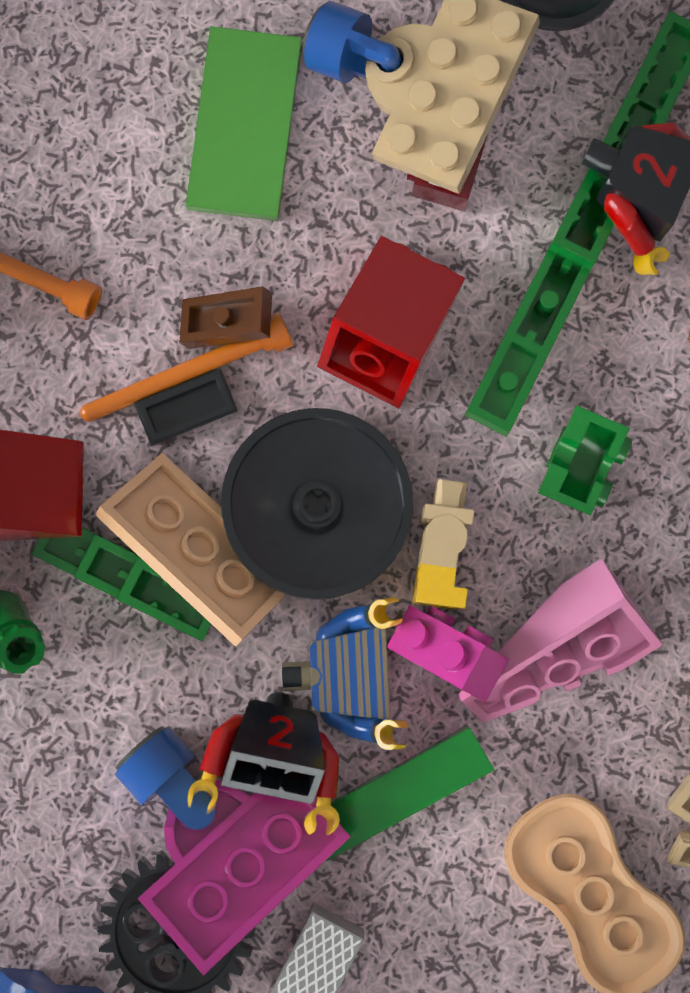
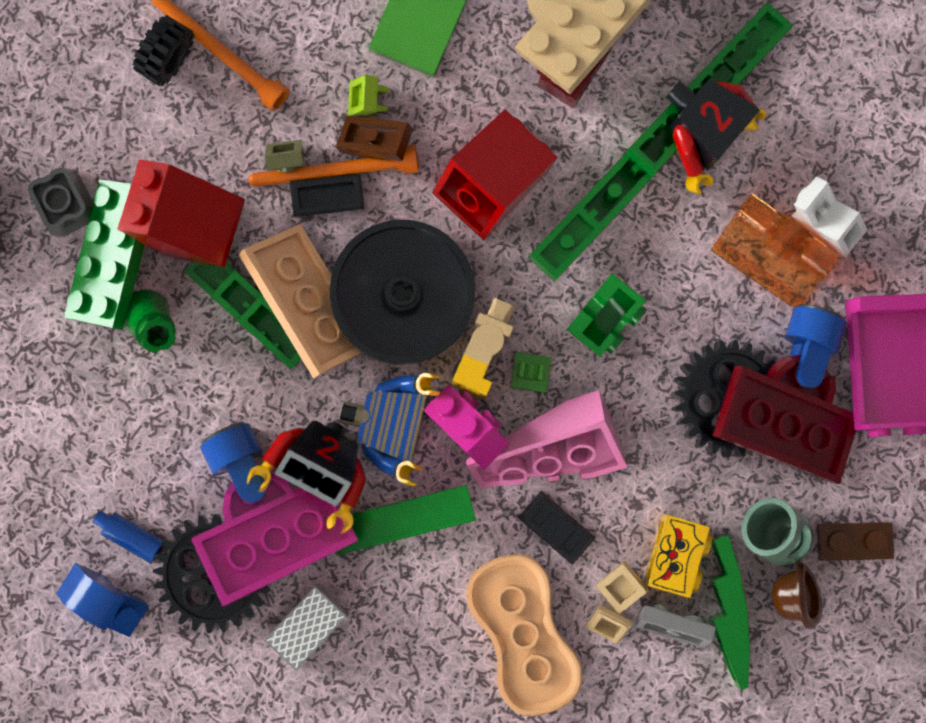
camera: 15 degrees right, 0 degrees up
(56, 911) = (129, 536): none -> blue cylinder
(118, 372) = (284, 155): none -> olive plate
(197, 268) = (363, 96): none -> lime tile
(506, 559) = (530, 372): none -> bright green tile
(594, 746) = (556, 527): none -> black tile

